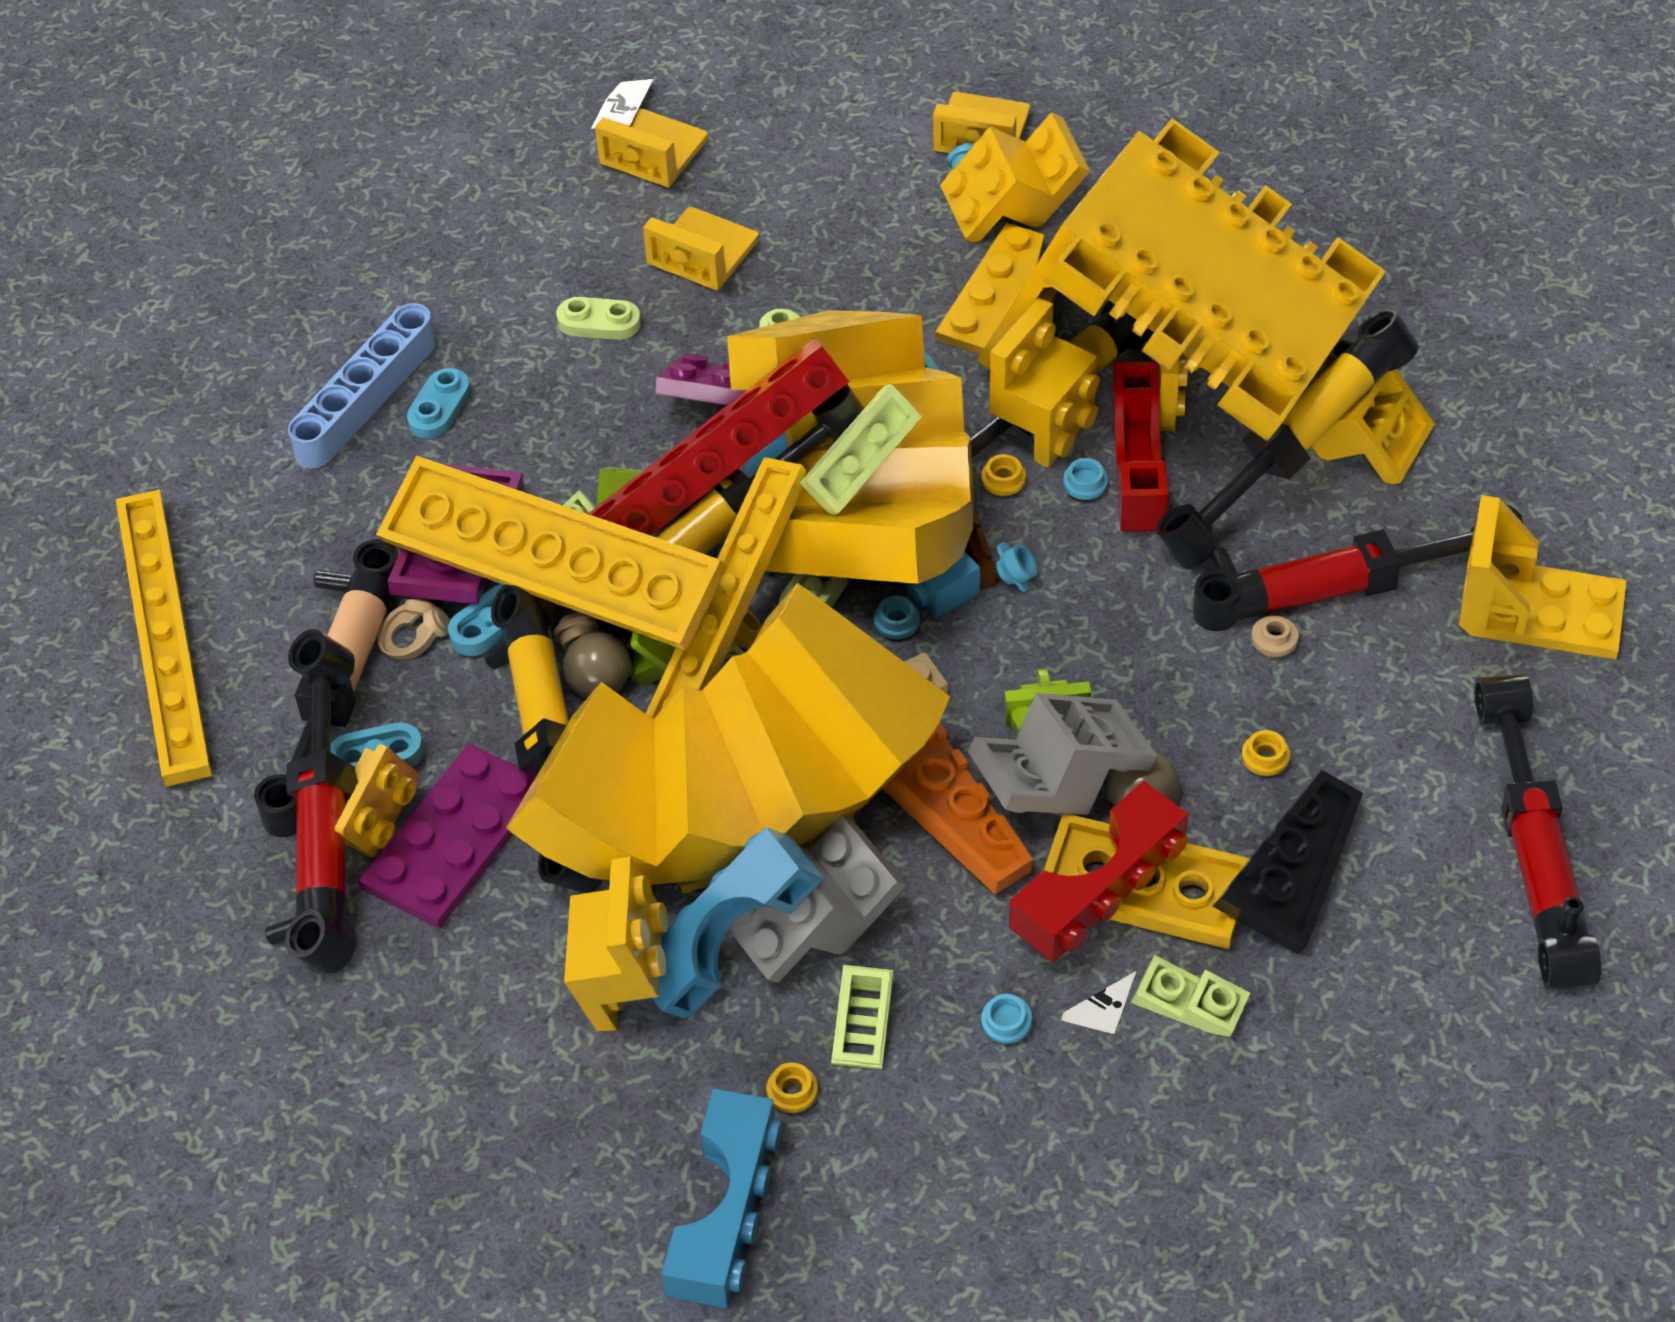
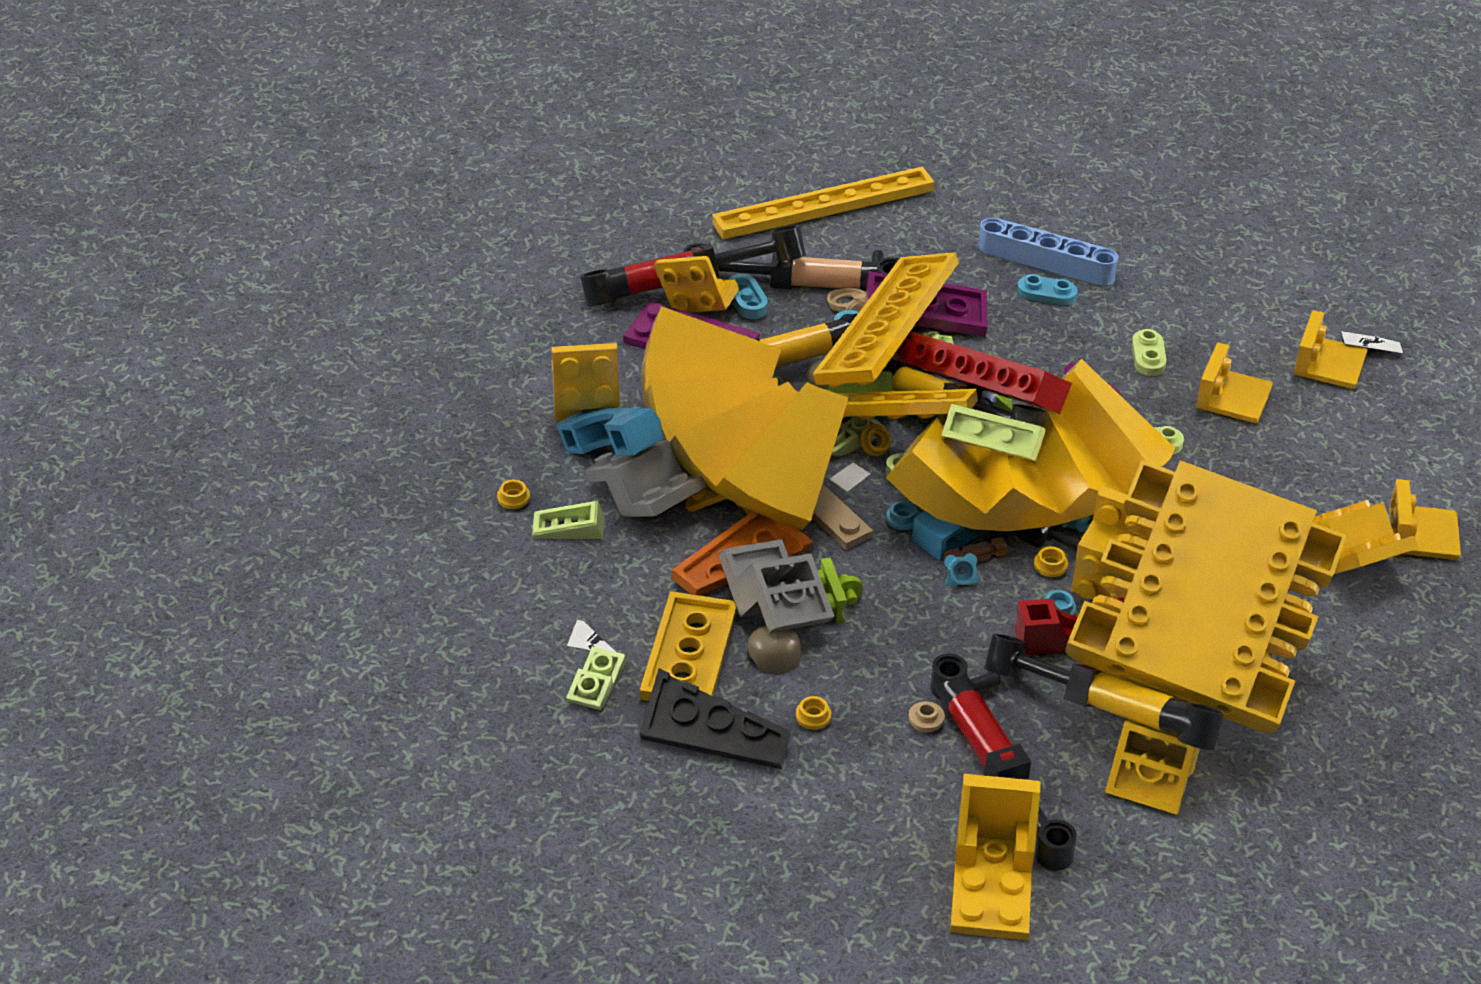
camera: 80 degrees right, 10 degrees down
(706, 1255) = (467, 471): dark azure arch -> none
(1006, 1019) = (570, 587): medium azure plate -> none
(1060, 909) = (709, 629): red arch -> none
(1532, 818) = (773, 862): black piece -> none

